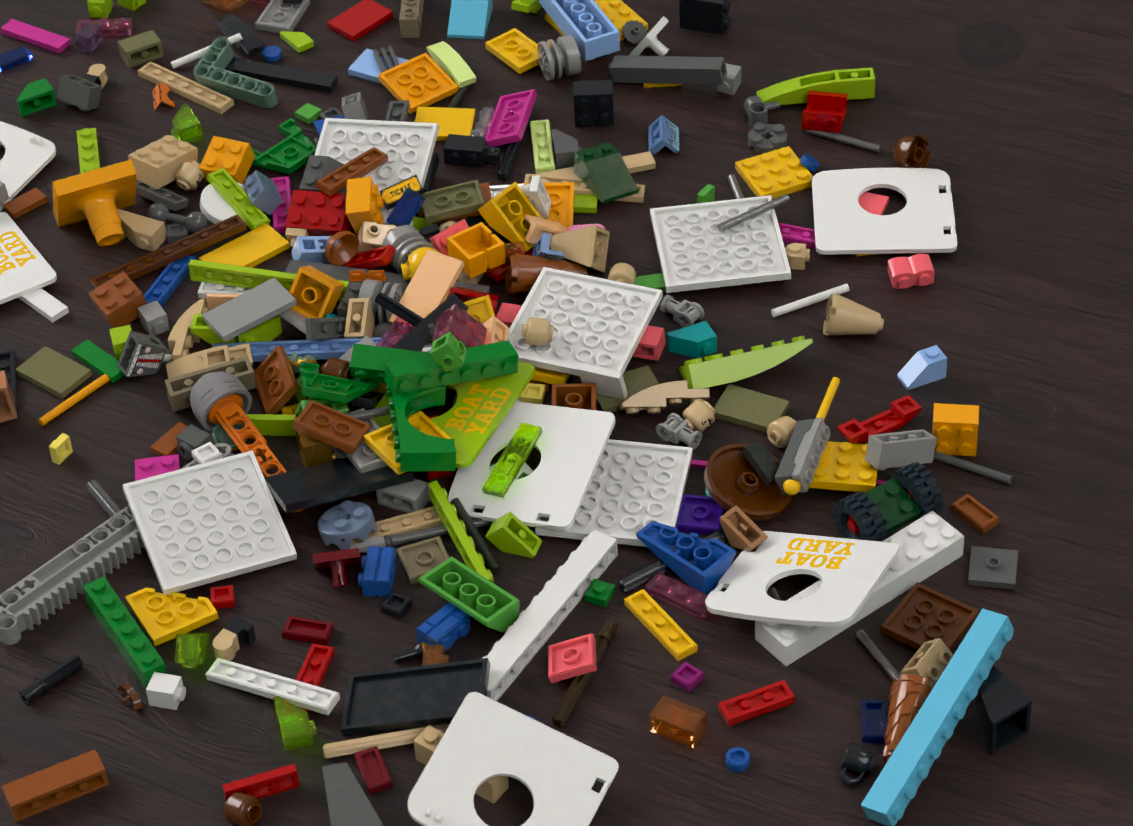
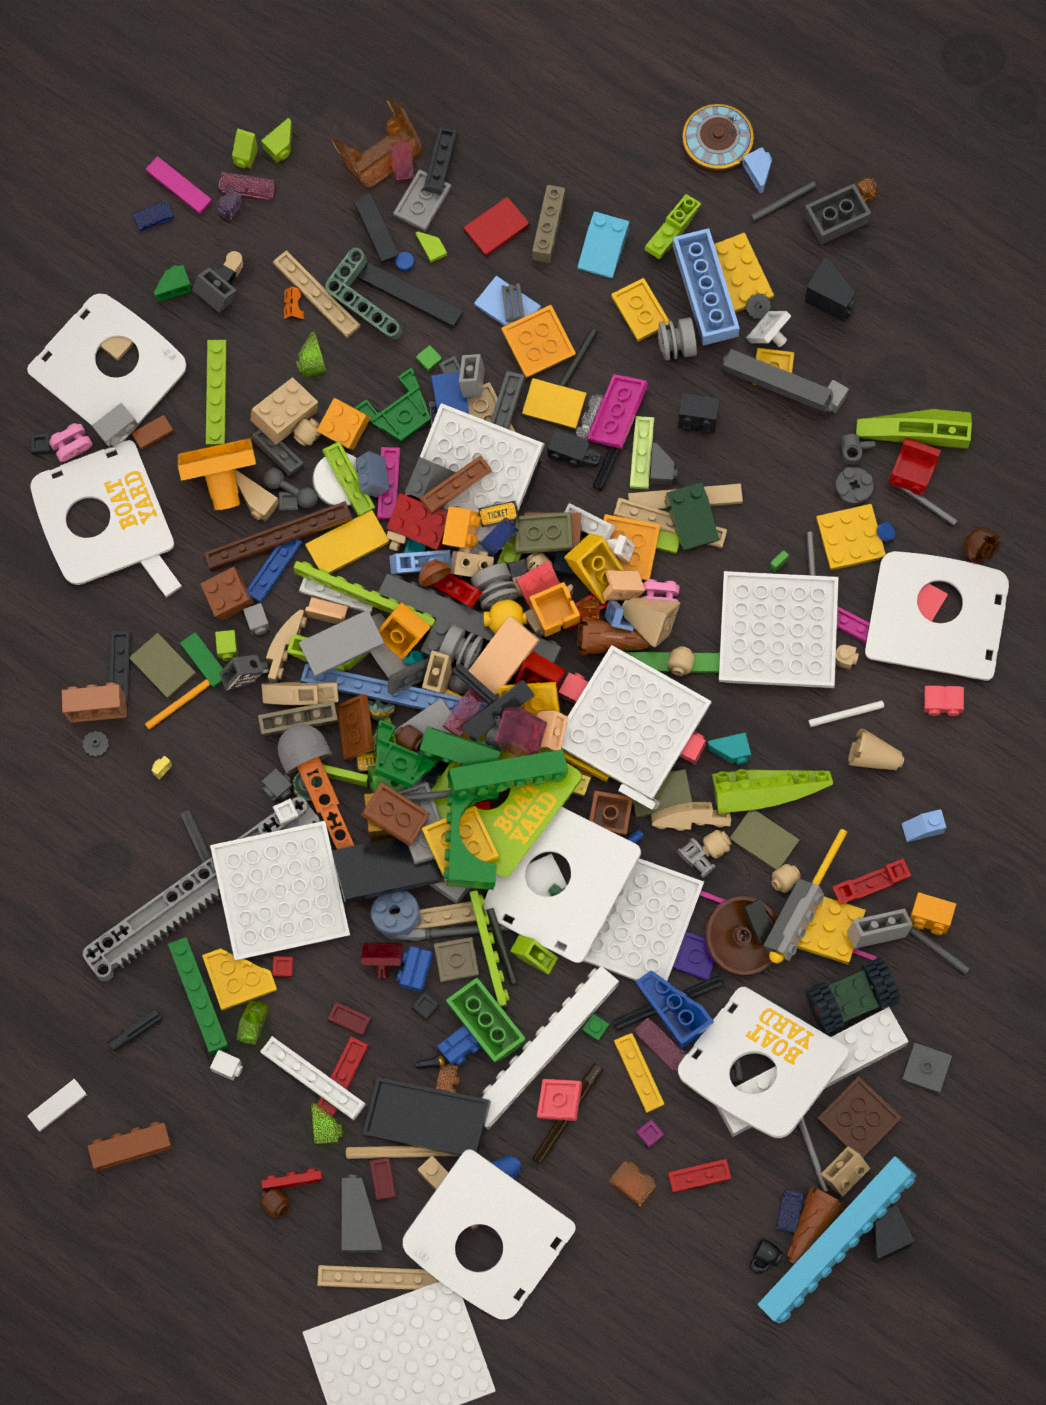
camera: 10 degrees right, 30 degrees up
(130, 693) = (199, 1061): reddish brown piece -> none
(140, 48) = (278, 230): olive brick -> none
(155, 466) = (240, 808): dark pink wing -> none
(167, 443) = (253, 778): dark orange tile -> none
(198, 54) = (340, 251): white bar -> none
(233, 638) = (284, 1019): leg -> none
(360, 276) = (443, 610): orange piece -> none
(448, 352) = (504, 775): bright green brick -> none
(452, 63) = (574, 318): yellowish green slope -> none
(512, 460) = (545, 876): clear neon green tile -> none
(537, 331) = (591, 733): tan head -> none
(663, 133) = (757, 464): medium blue panel -> none
(682, 311) = (729, 709): light grey connector -> none
(737, 759) = (673, 1228): blue tile -> none
(741, 530) = (726, 991): medium nougat slope -> none
(753, 213) = (816, 601): flat silver bar -> none
(975, 513) = (927, 1003): dark orange tile -> none

